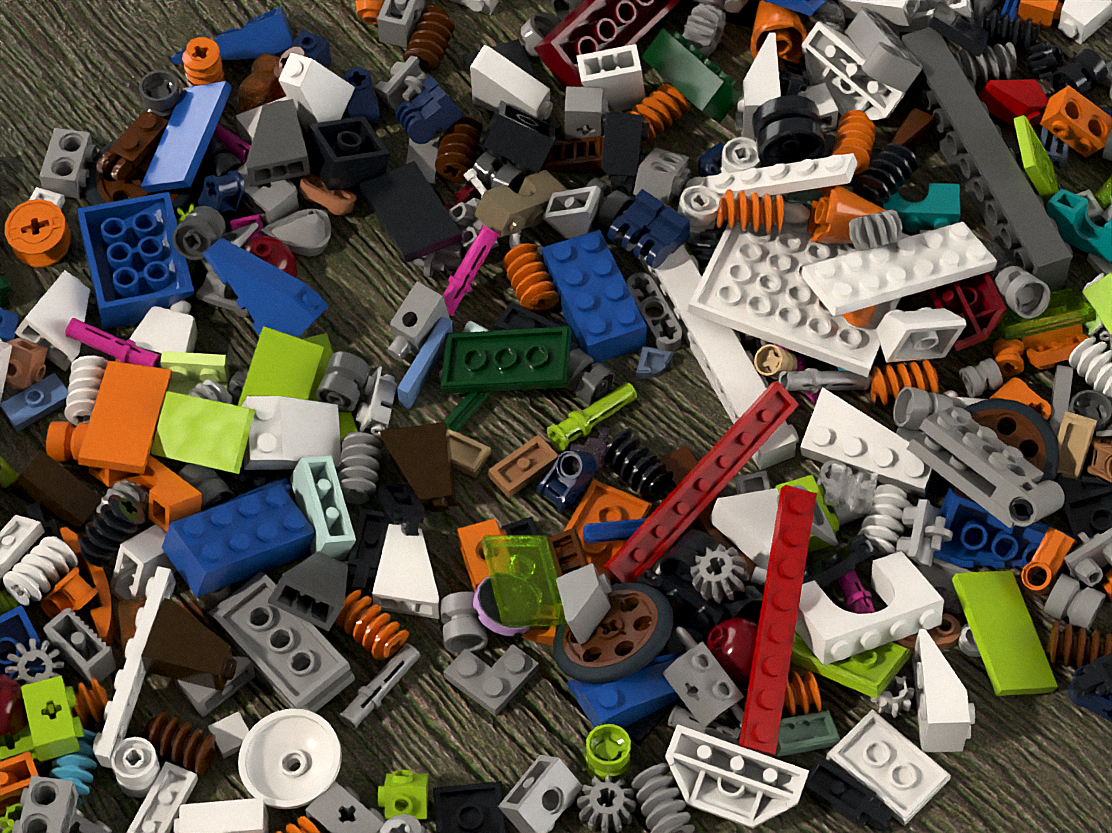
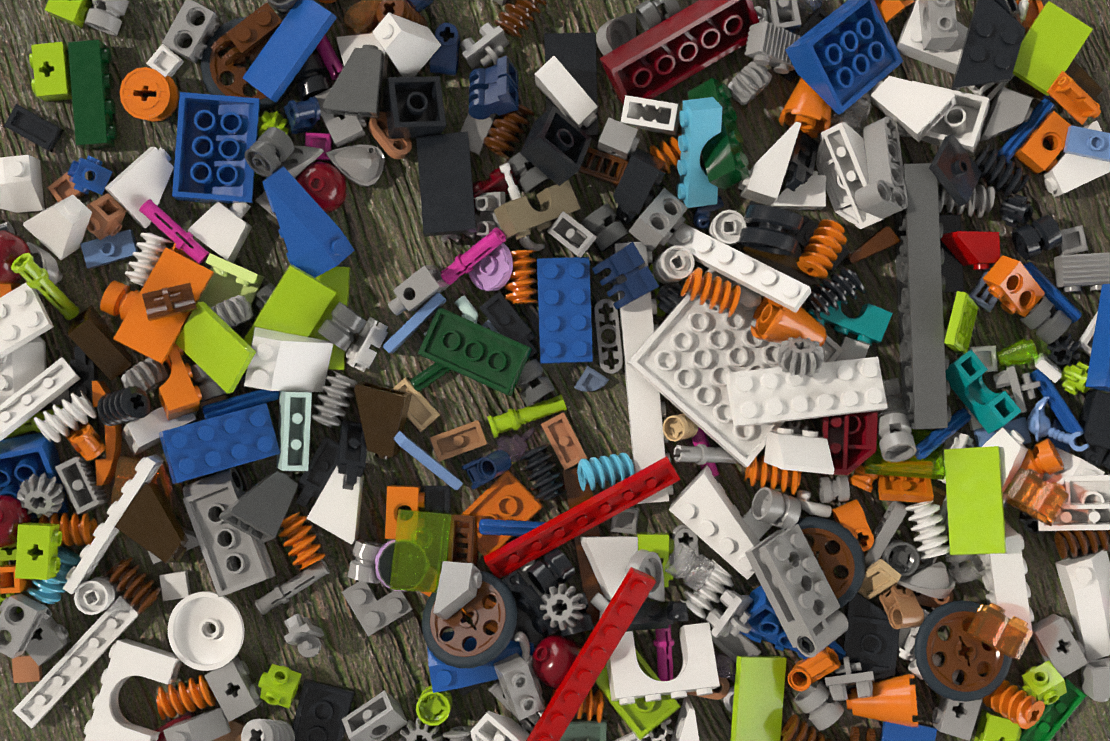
camera: 15 degrees right, 30 degrees up
(134, 395) = (169, 301): none -> reddish brown hips
(414, 722) = (304, 635): none -> light grey hips
(494, 279) = (493, 270): none -> lavender tile
(496, 485) = (427, 460): none -> medium blue tile
(648, 427) = (563, 441): none -> nougat plate
(665, 61) = (699, 123): none -> medium azure arch
(698, 436) = (604, 470): none -> medium azure piece
(1073, 282) = (940, 435): none -> blue axle

